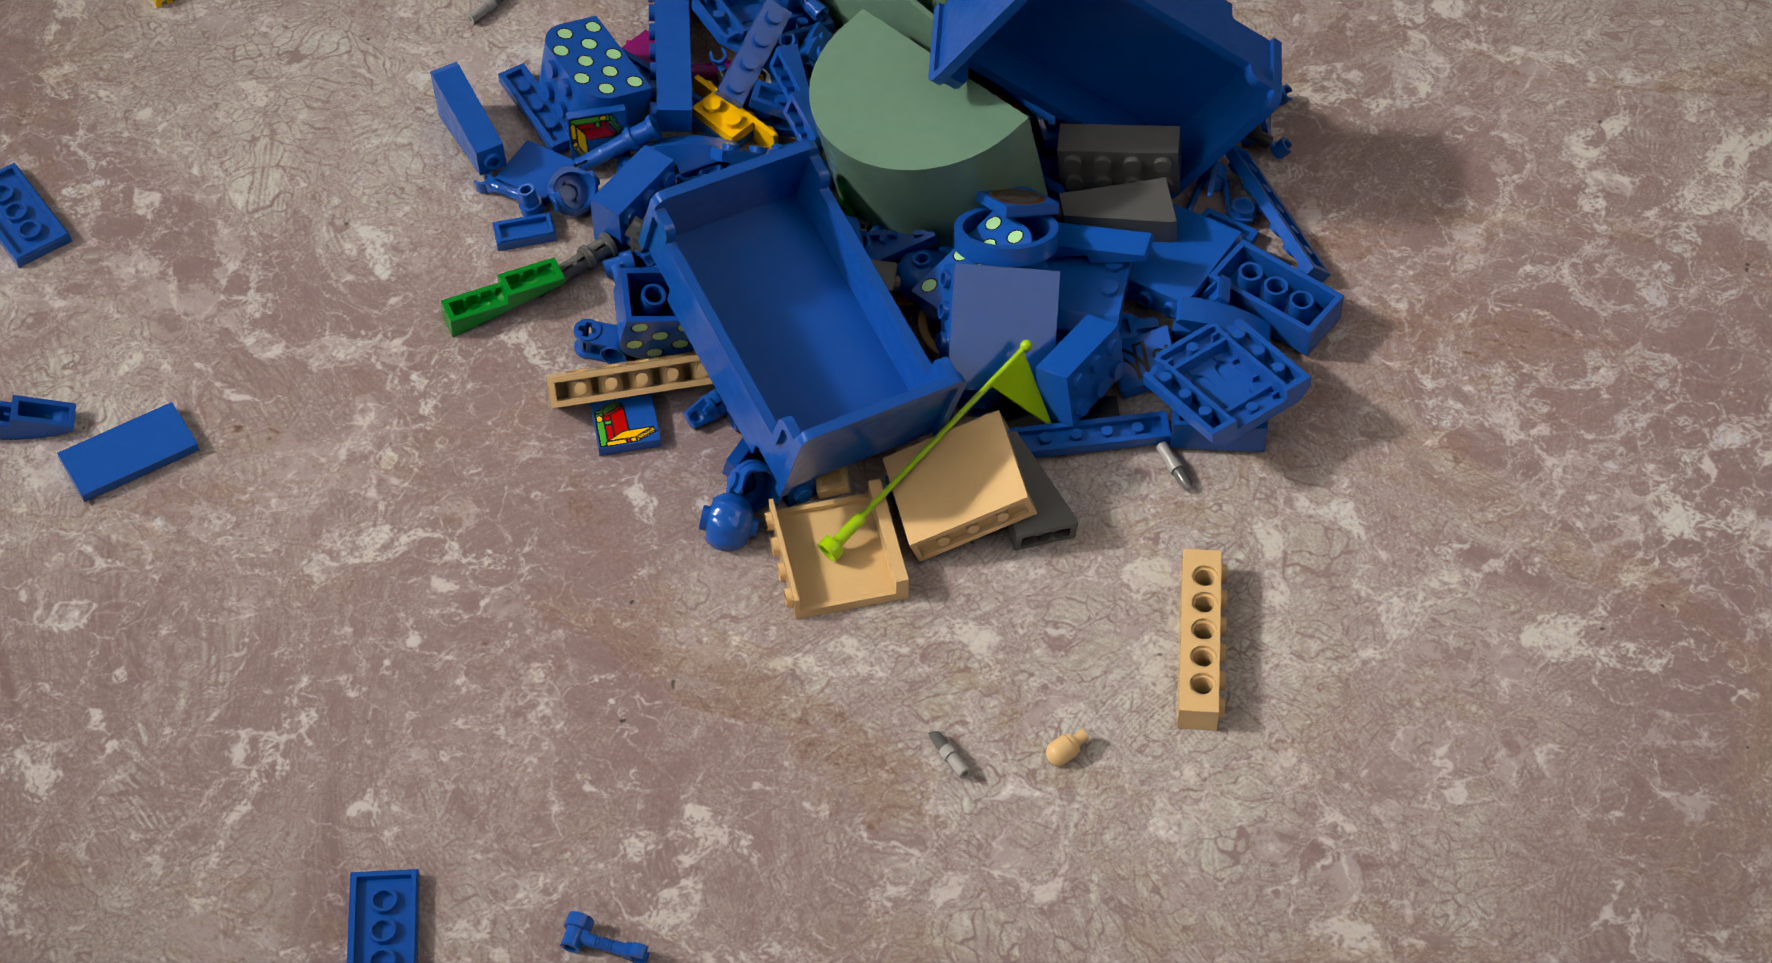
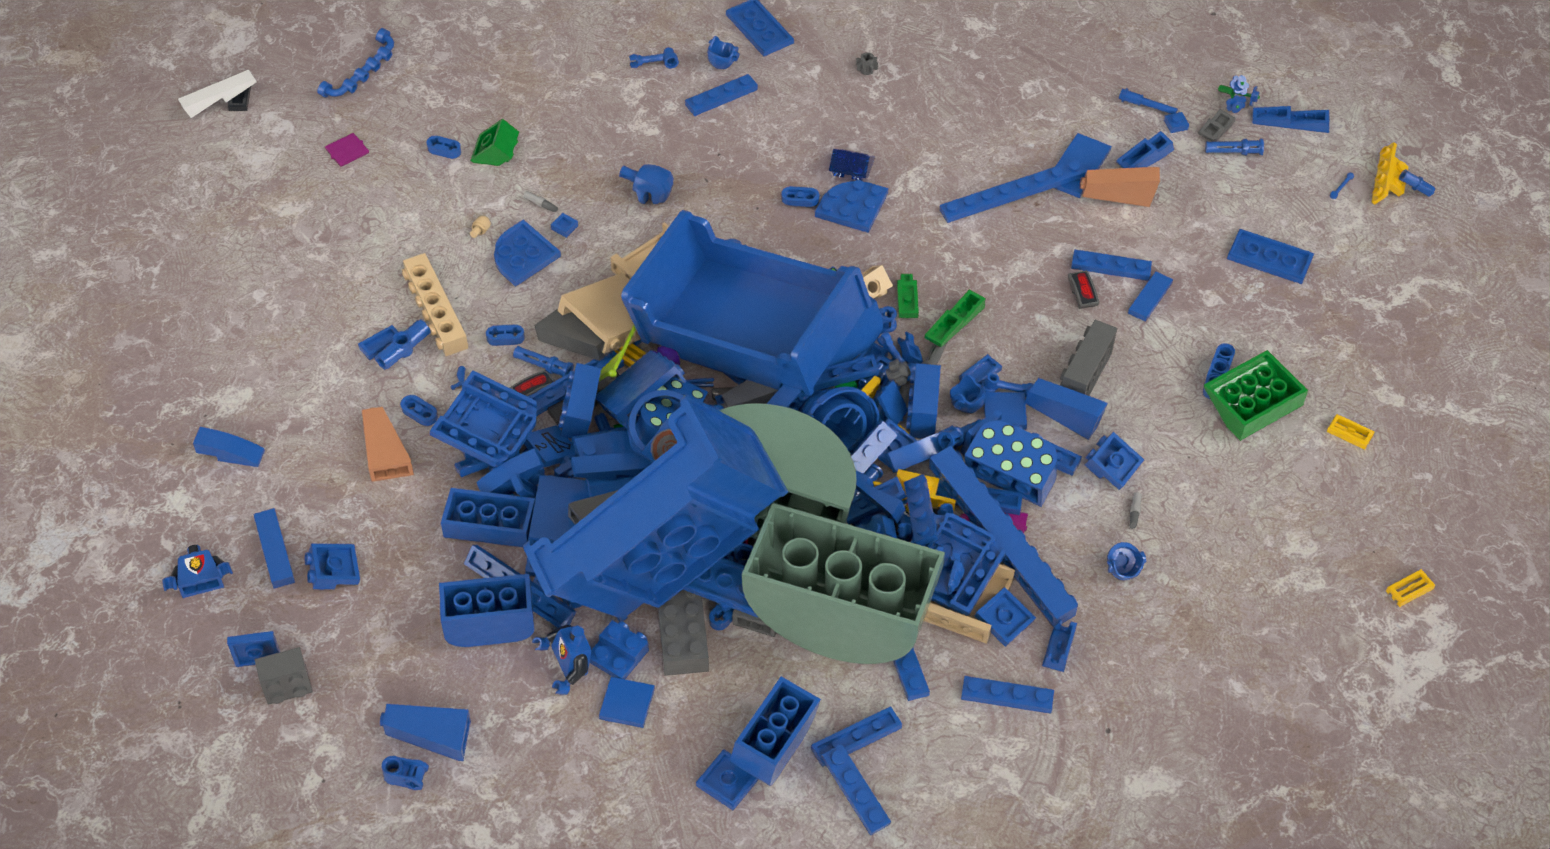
camera: 150 degrees right, 0 degrees up
(112, 366) = (1122, 185): none -> nougat slope
(221, 230) = (1150, 296): none -> blue tile
(228, 293) = (1111, 265): none -> blue plate
(232, 36) = (1255, 394): none -> green slope
(239, 98) = (1220, 364): none -> blue beam
(258, 445) = (1013, 190): none -> blue plate
(278, 759) = (867, 63): none -> dark grey gear
(297, 271) = (1084, 289): none -> slope
(394, 156) = (1090, 358): none -> dark grey brick
(444, 593) = (851, 163): none -> clear blue slope
(471, 49) = (1113, 460): none -> blue plate
(492, 879) = (722, 54): none -> blue cap
(493, 537) = (852, 204): none -> blue plate
(534, 362) = (907, 297): none -> green hinge
(543, 822) = (721, 95): none -> blue plate
(563, 577) = (800, 196): none -> blue plate
(591, 286) = (910, 352): none -> blue plate
(770, 688) = (650, 180): none -> blue piece
(938, 687) = (564, 225): none -> blue plate
(967, 882) = (495, 144): none -> green slope
(1026, 669) = (523, 252): none -> blue plate
(1052, 926) = (443, 147): none -> blue beam
(1080, 477) = (552, 365): none -> blue pin
(1120, 554) = (505, 335): none -> blue beam
(1121, 456) = (533, 383): none -> slope
(1214, 521) = (461, 377): none -> blue piece
(1289, 590) = (402, 344): none -> blue piece
(1299, 493) = (420, 411): none -> blue plate
(1304, 625) = (377, 342): none -> blue tile
(1334, 169) = (487, 610): none -> blue brick
(1369, 452) = (384, 448): none -> nougat slope
(1457, 109) = (429, 728): none -> blue slope
(1501, 329) = (332, 565): none -> blue plate
(1507, 79) = (409, 772): none -> blue piece
(1569, 386) = (274, 548): none -> blue slope
(1587, 547) = (227, 447): none -> blue slope
(1612, 213) = (283, 676): none -> dark grey brick
(1638, 257) = (252, 646): none -> blue tile
(1680, 392) = (197, 573): none -> blue torso

